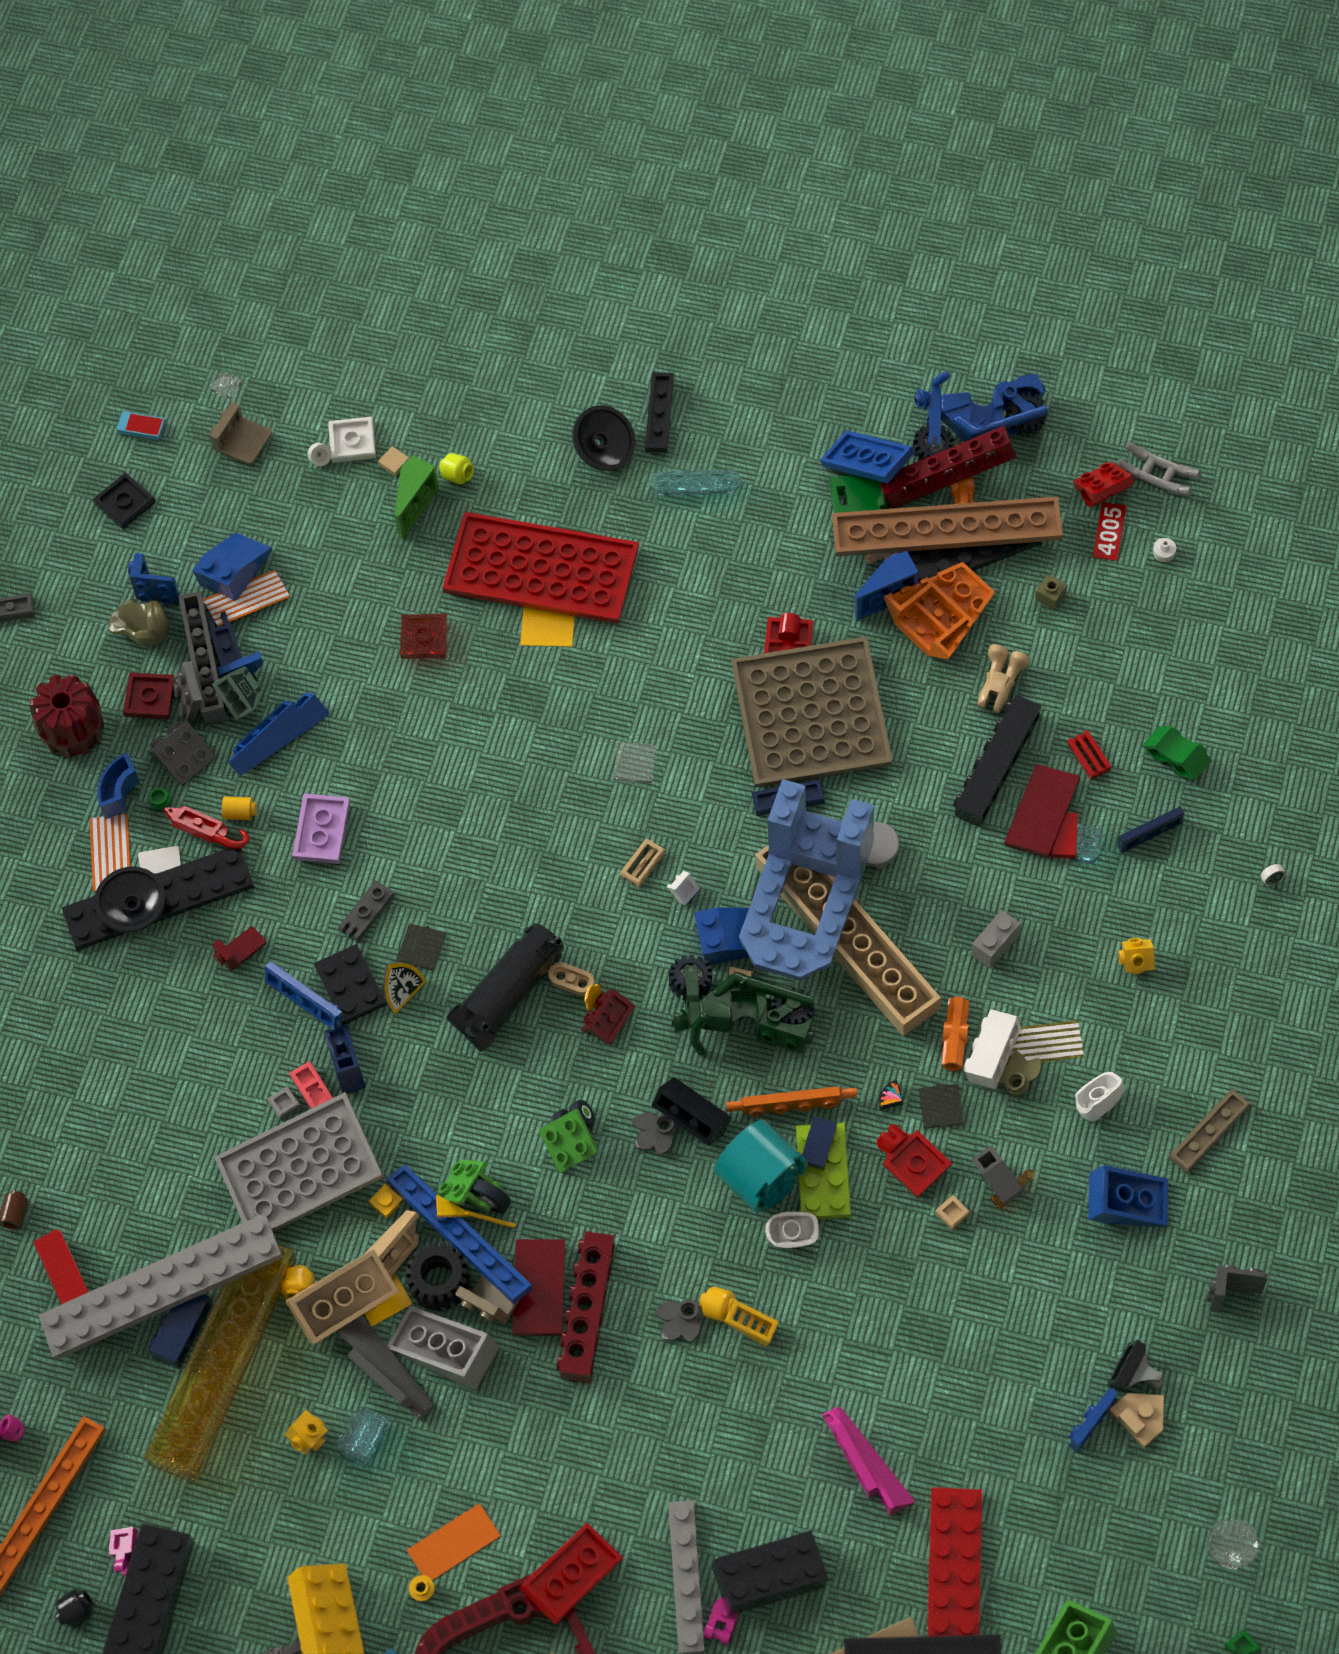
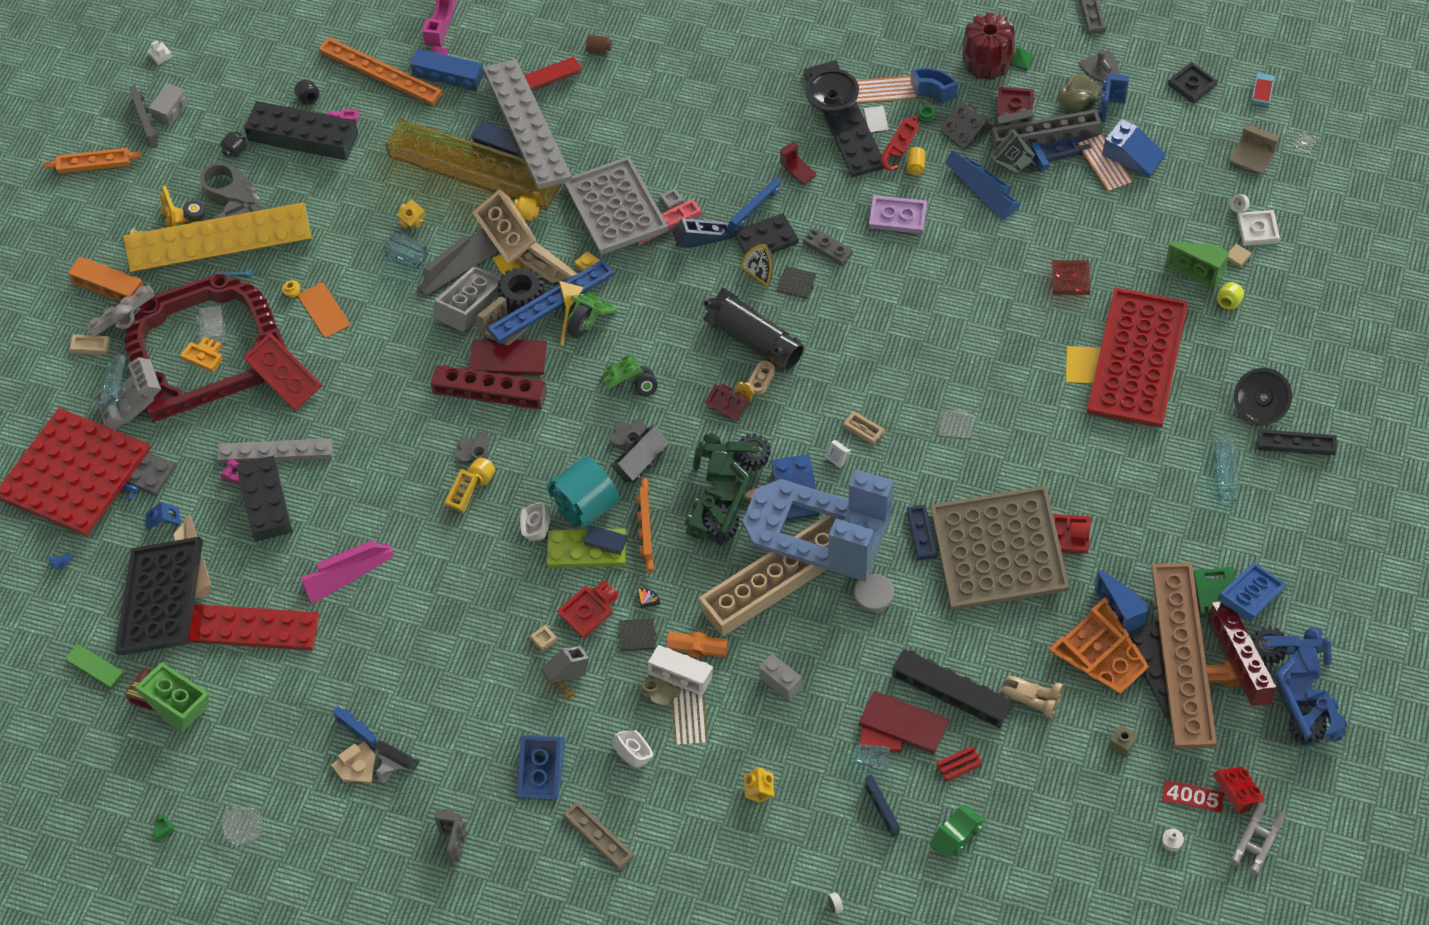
camera: 90 degrees right, 5 degrees down
(44, 1413) = (447, 69): none -> blue brick
(91, 600) = (1100, 65): none -> dark grey shield

